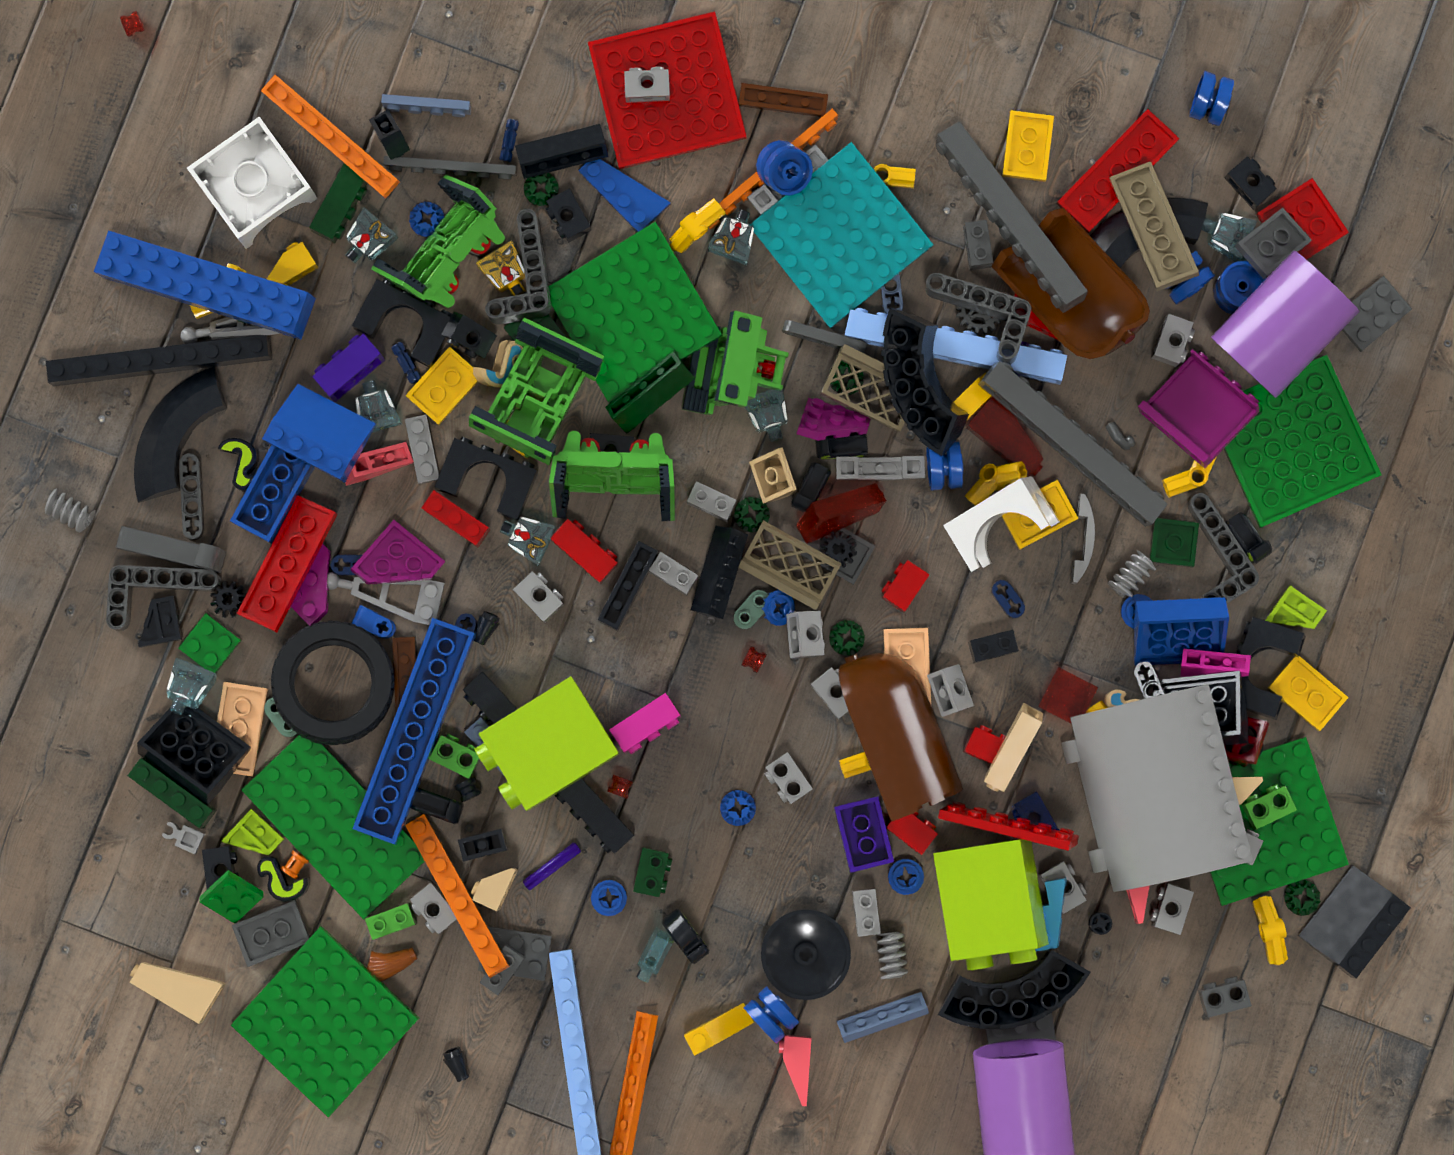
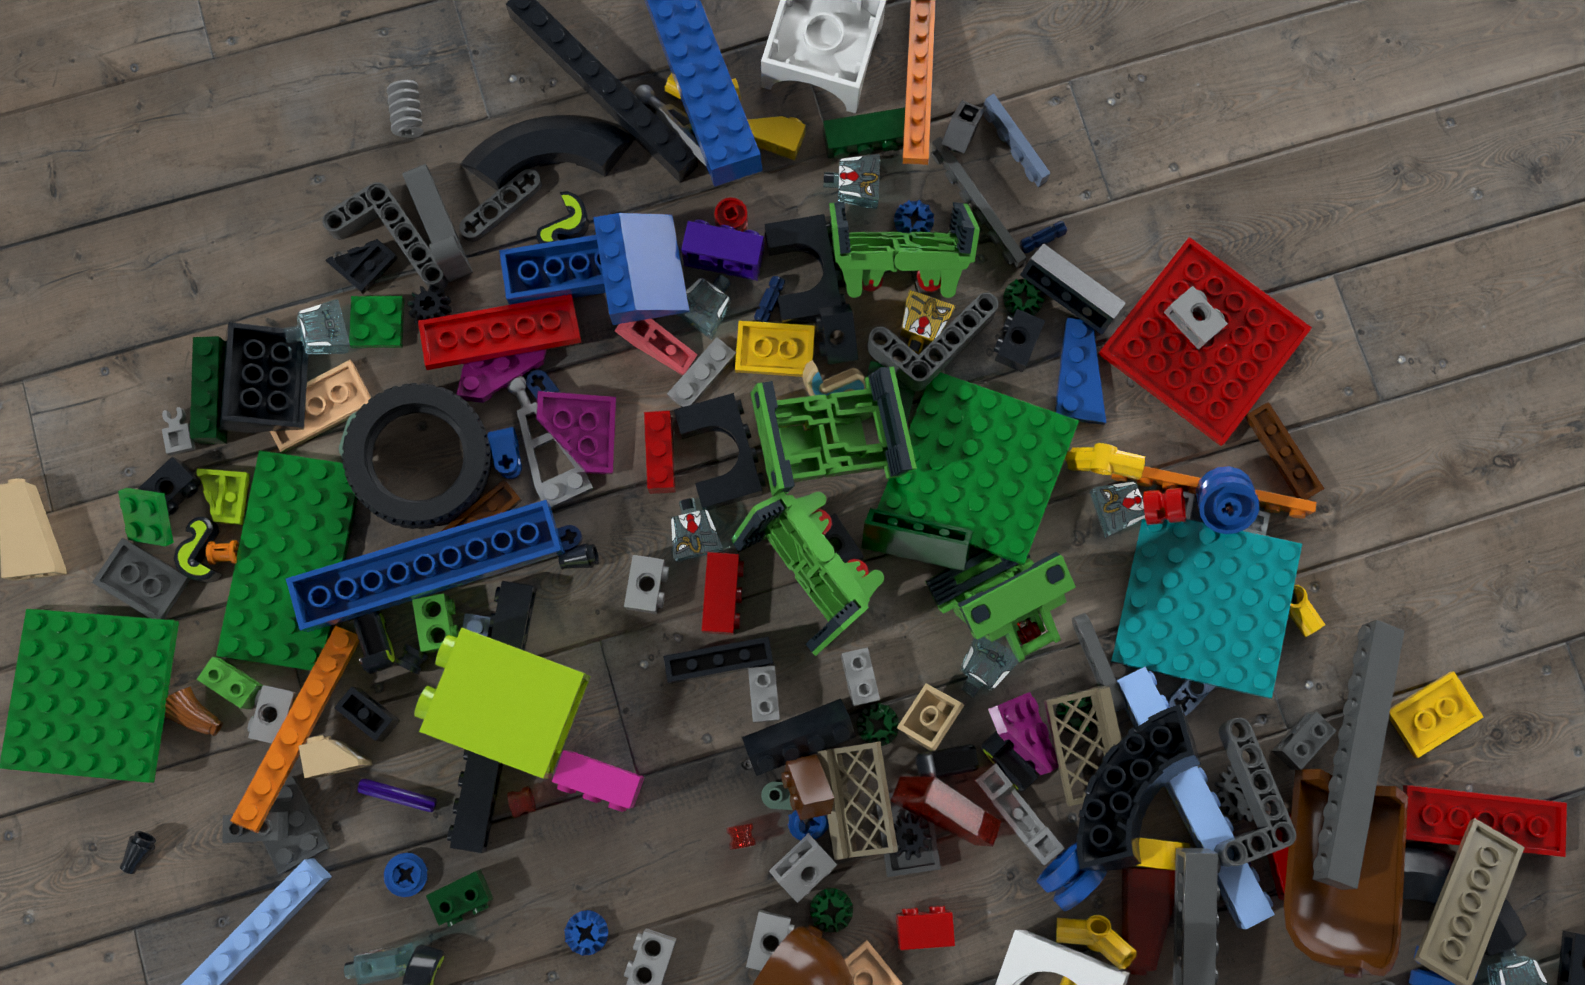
camera: 50 degrees right, 5 degrees down
(327, 343) = (731, 213): none -> red wheel
(754, 214) = (1164, 506): none -> red wheel
(756, 590) = (808, 787): none -> reddish brown brick

